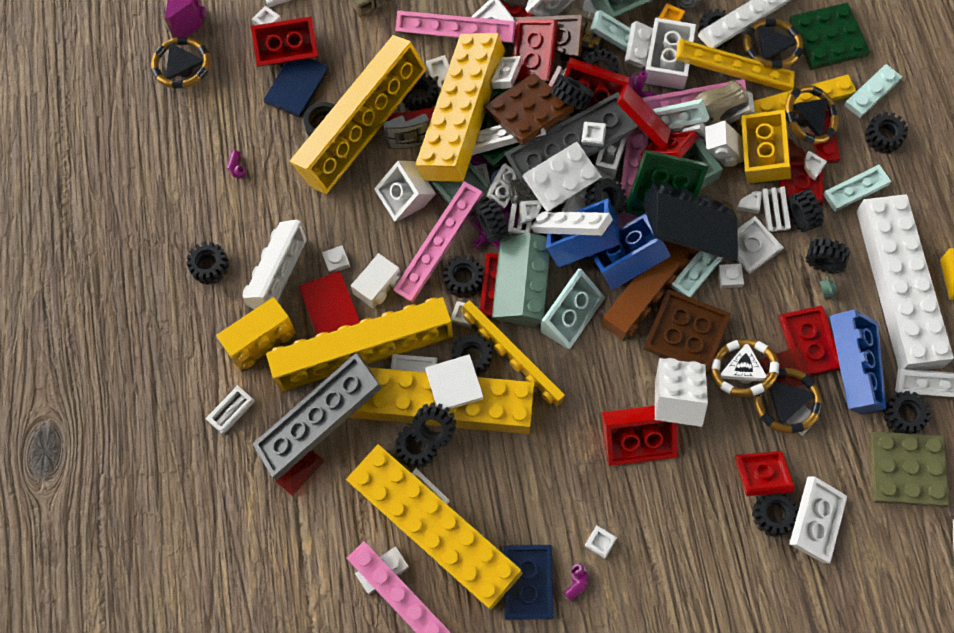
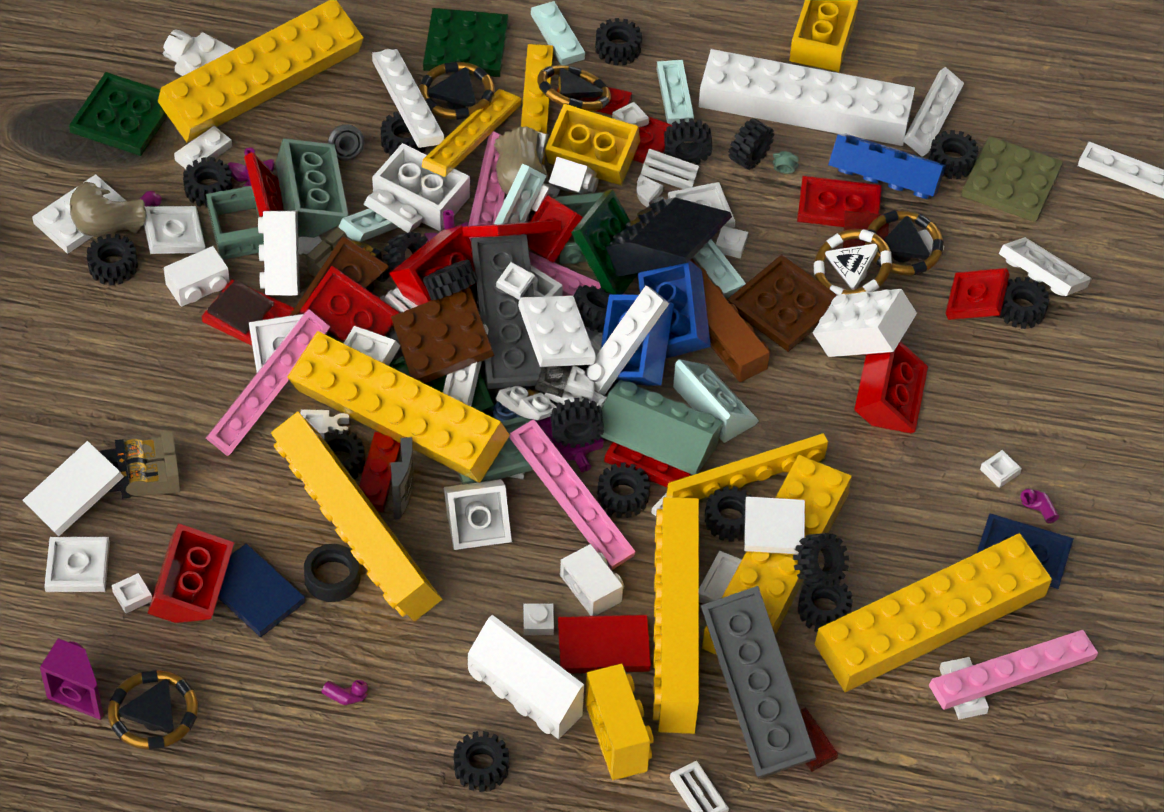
camera: 75 degrees left, 15 degrees down
(672, 13) = (362, 170): light orange plate -> none

